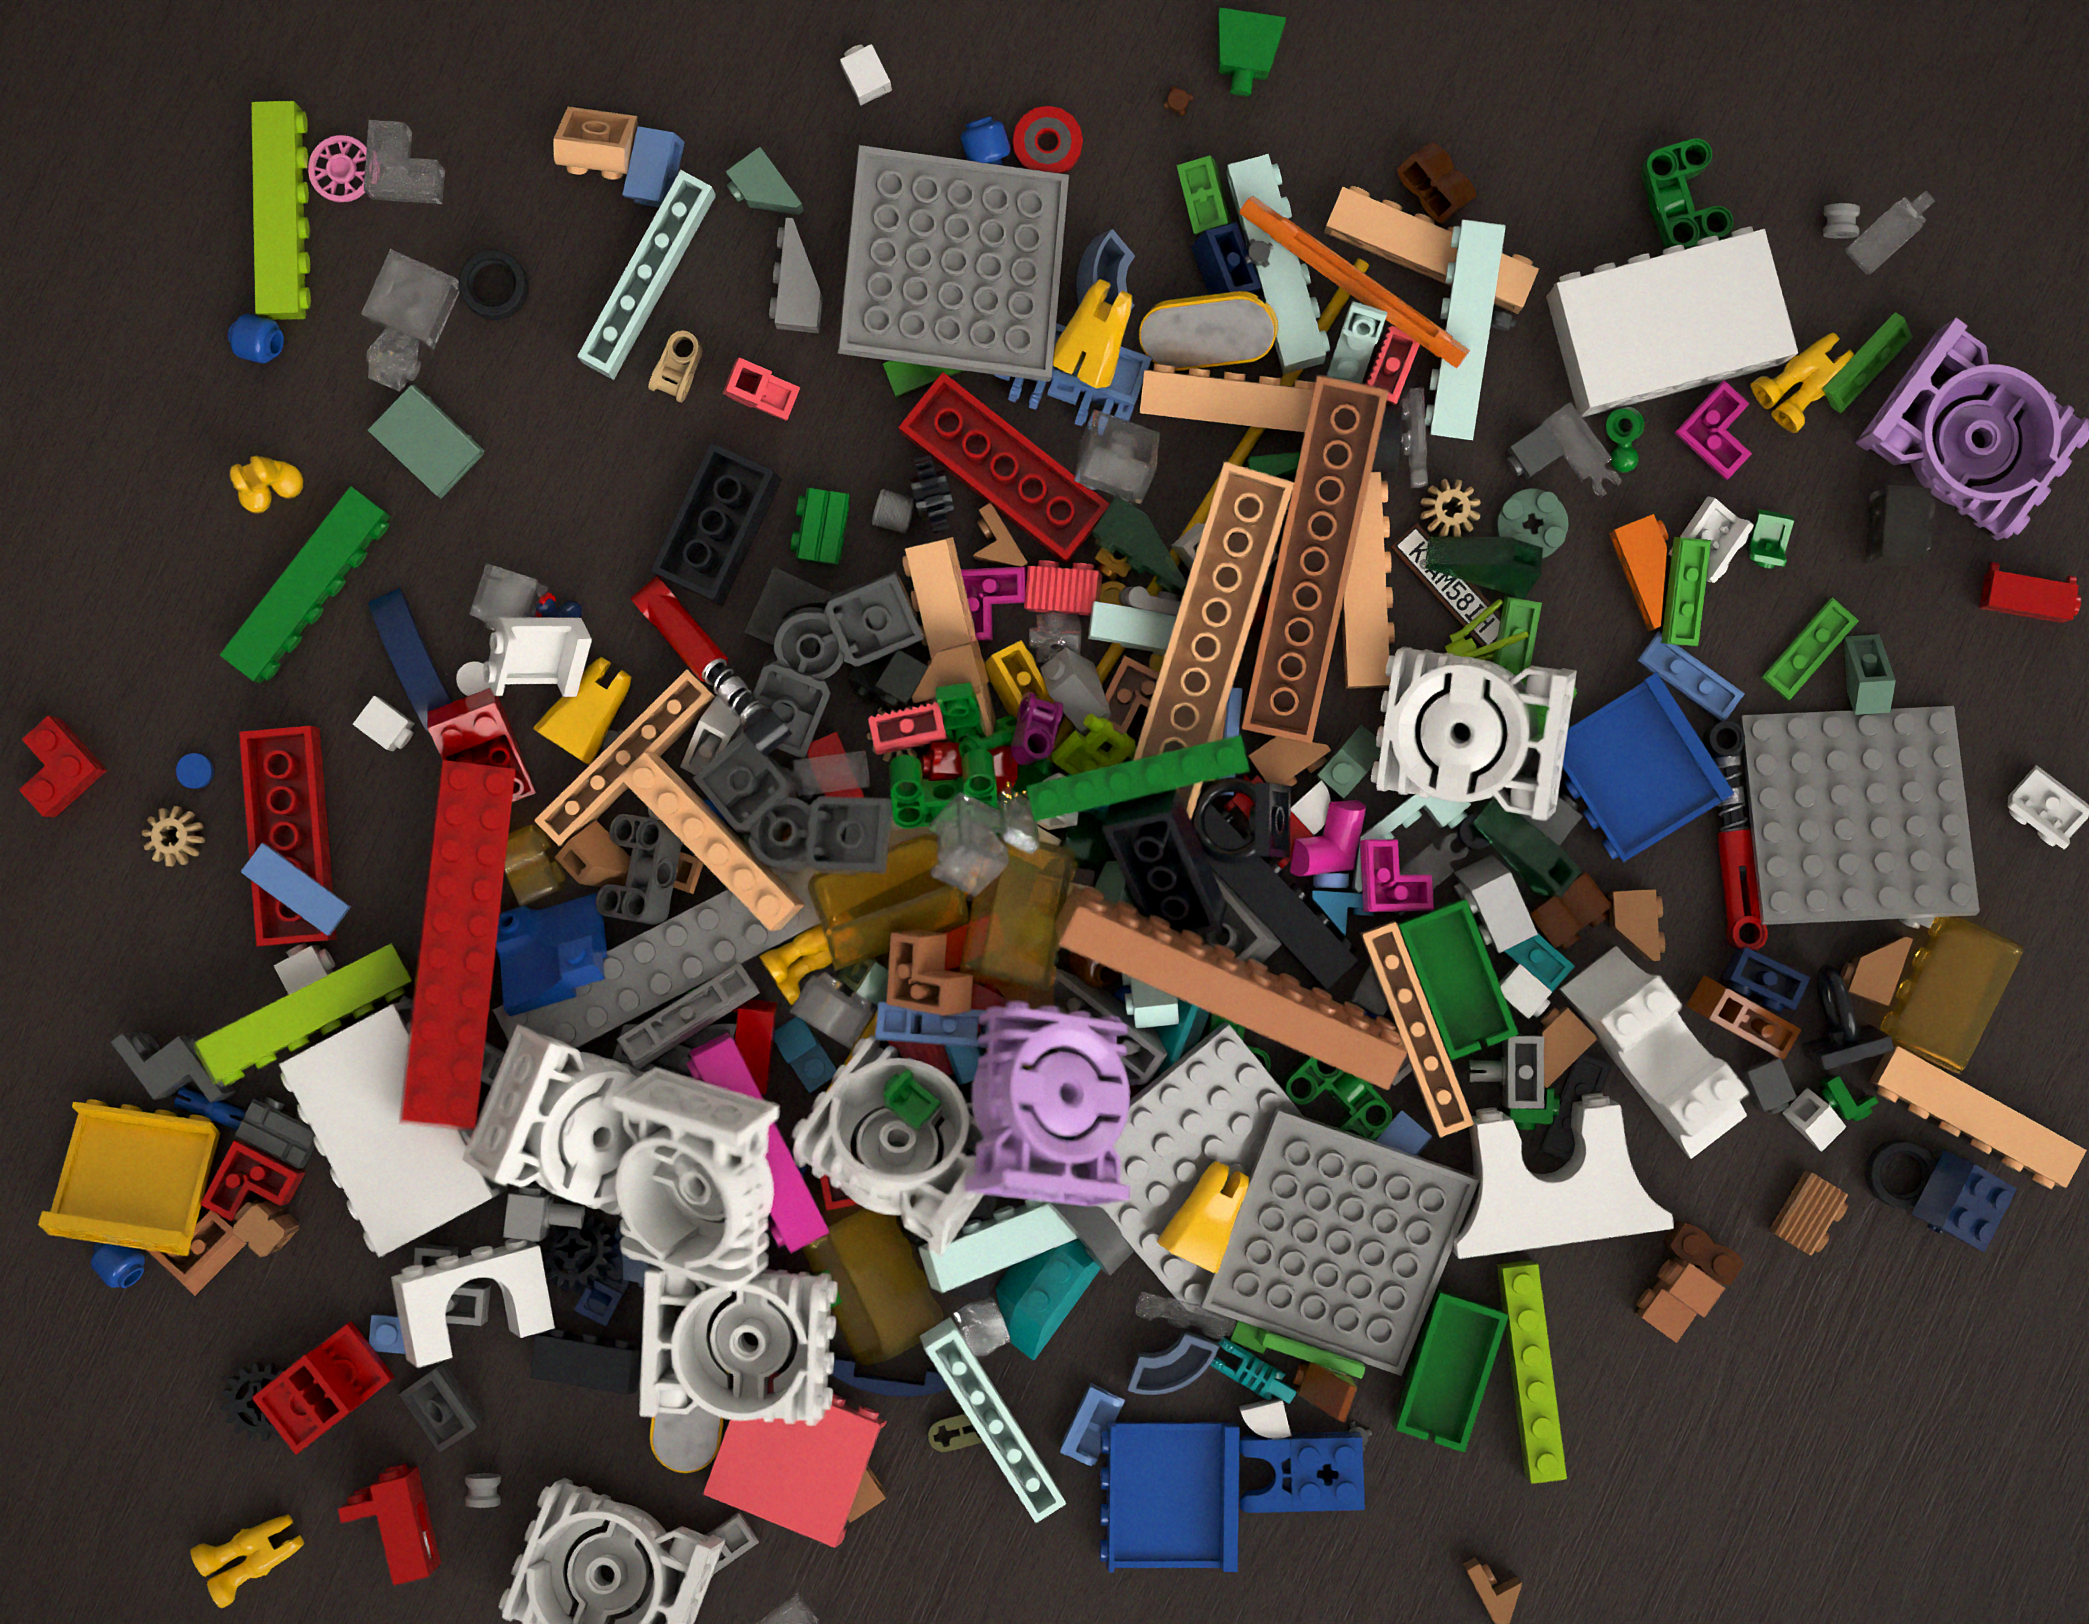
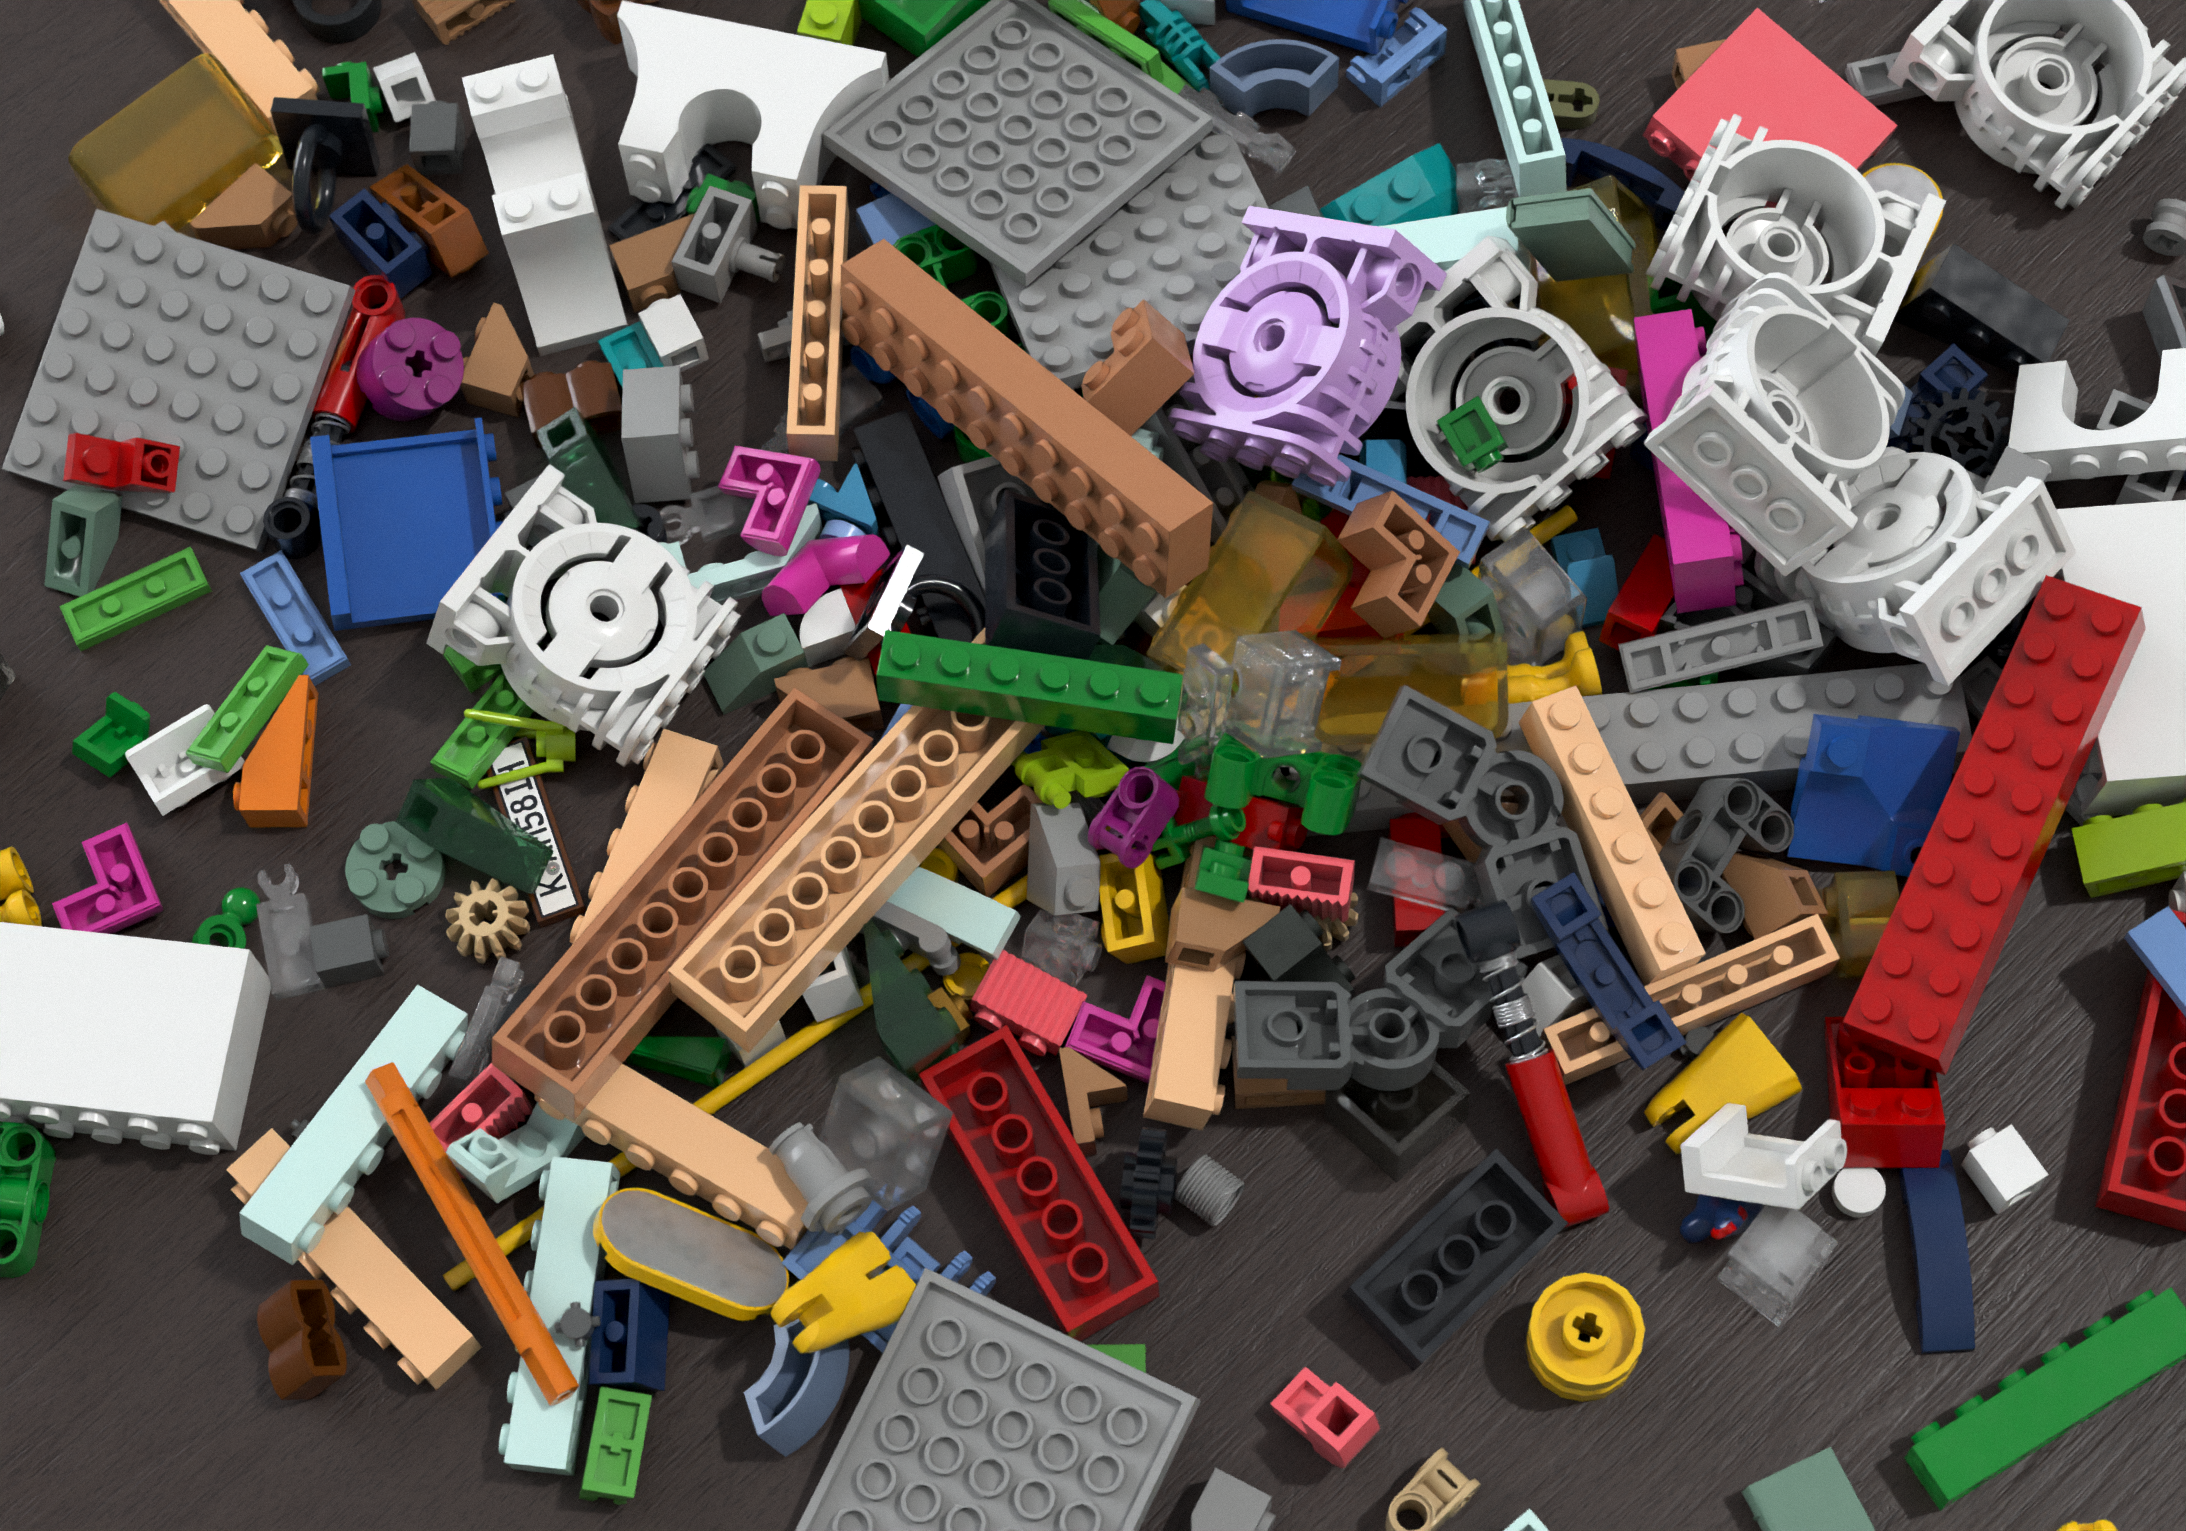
camera: 150 degrees left, 20 degrees down
(598, 493) = (1590, 1307): none -> yellow wheel
(680, 740) = (1604, 974): none -> dark blue slope
(822, 527) = (1313, 1205): green brick -> none
(897, 1280) = (1571, 234): none -> sand green piece
(1142, 407) = (831, 1191): none -> light grey piece
(1155, 1051) = (1142, 371): none -> nougat brick
(1206, 1219) = (1170, 191): yellow piece -> none
(1457, 978) = (742, 357): green piece -> none
(1675, 881) = (428, 351): none -> magenta brick
(1864, 732) = (122, 465): none -> red slope

